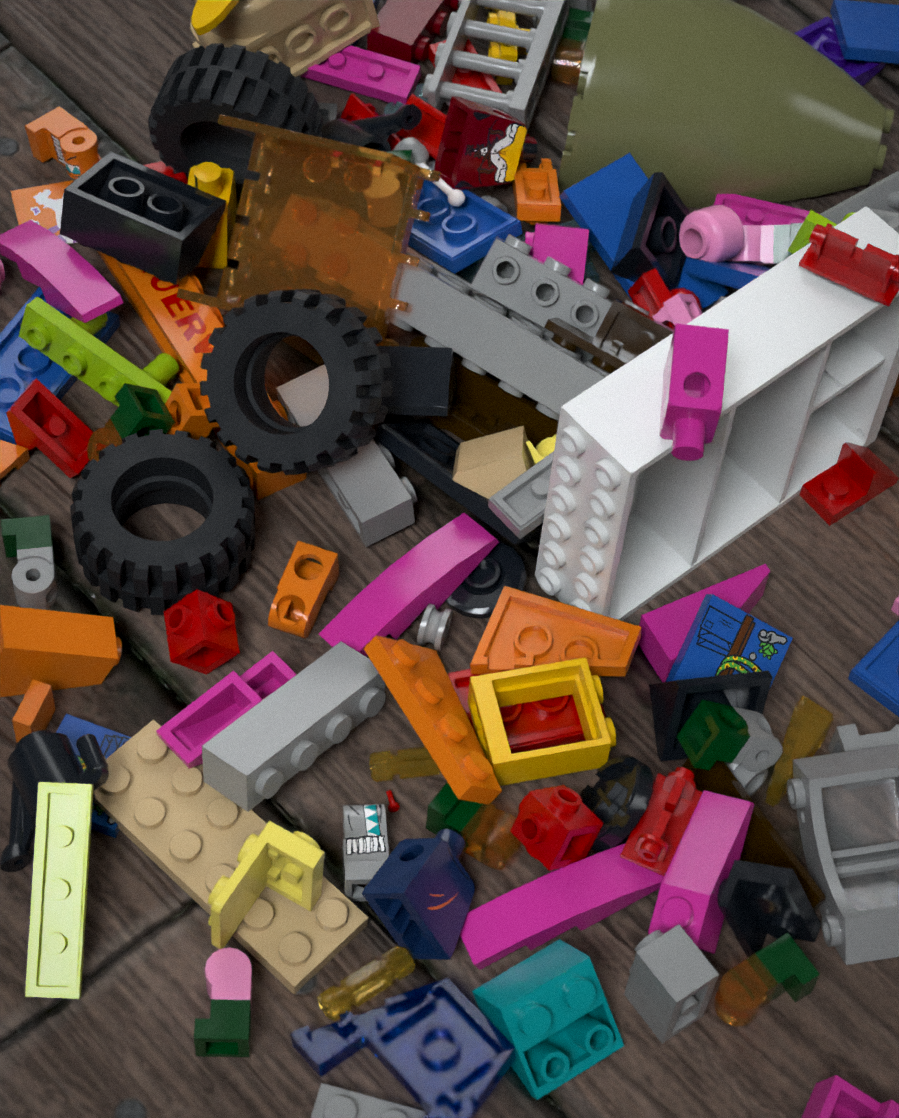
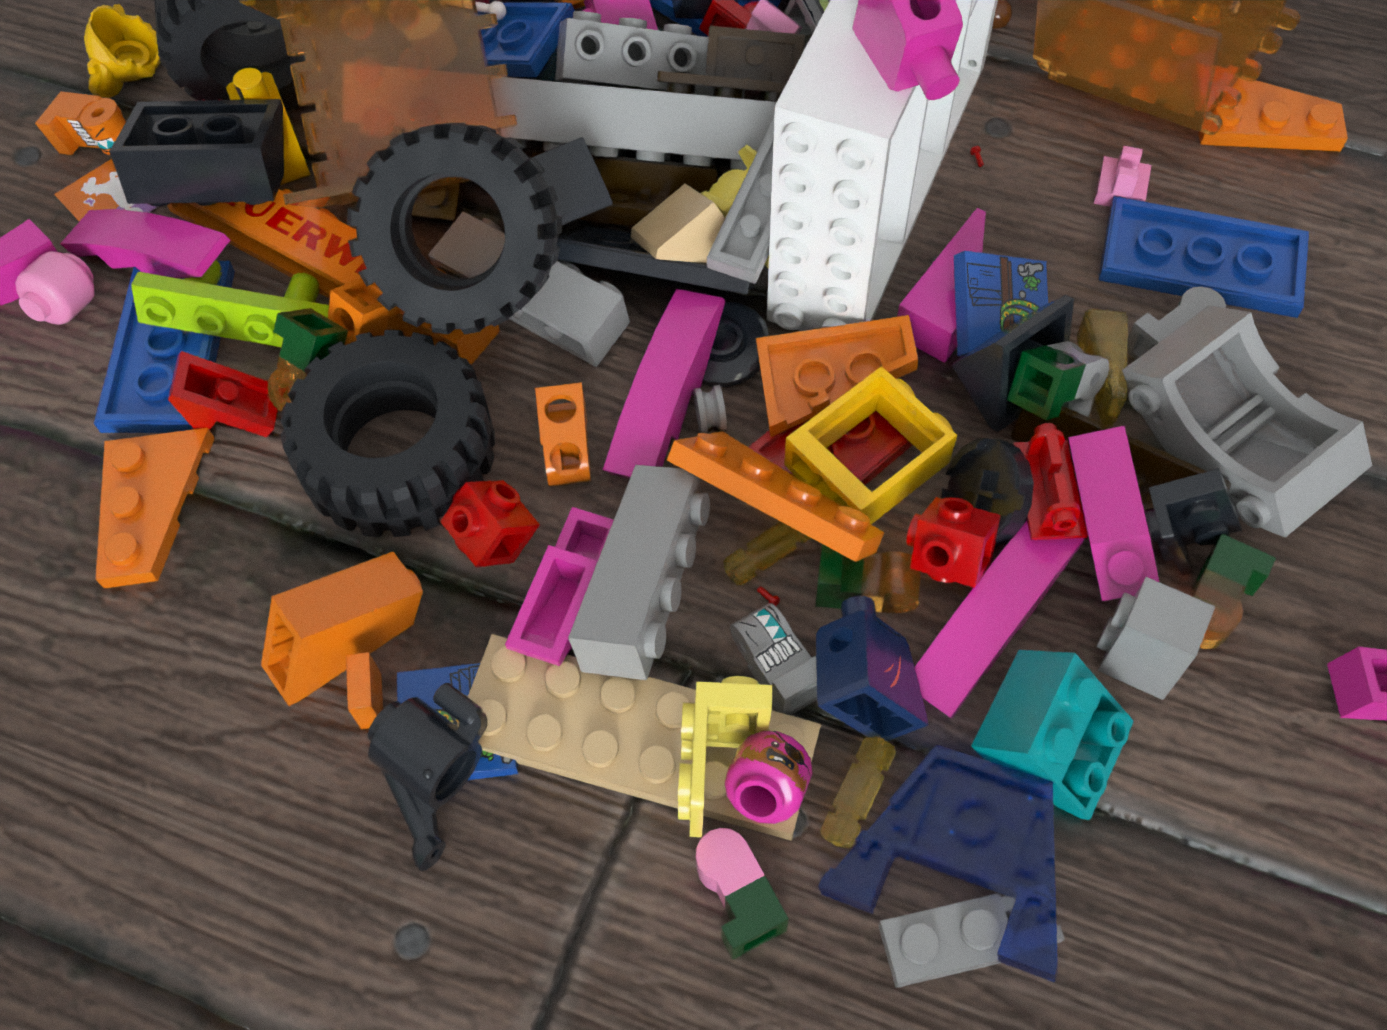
camera: 20 degrees left, 5 degrees up
(35, 573) = (283, 542): leg -> none
(59, 890) = (501, 865): tile -> none
(125, 87) = (119, 49): none -> yellow hair
(292, 926) = (768, 777): none -> dark pink head
(813, 514) = (976, 152): none -> red piece
(848, 483) = (988, 112): red slope -> none

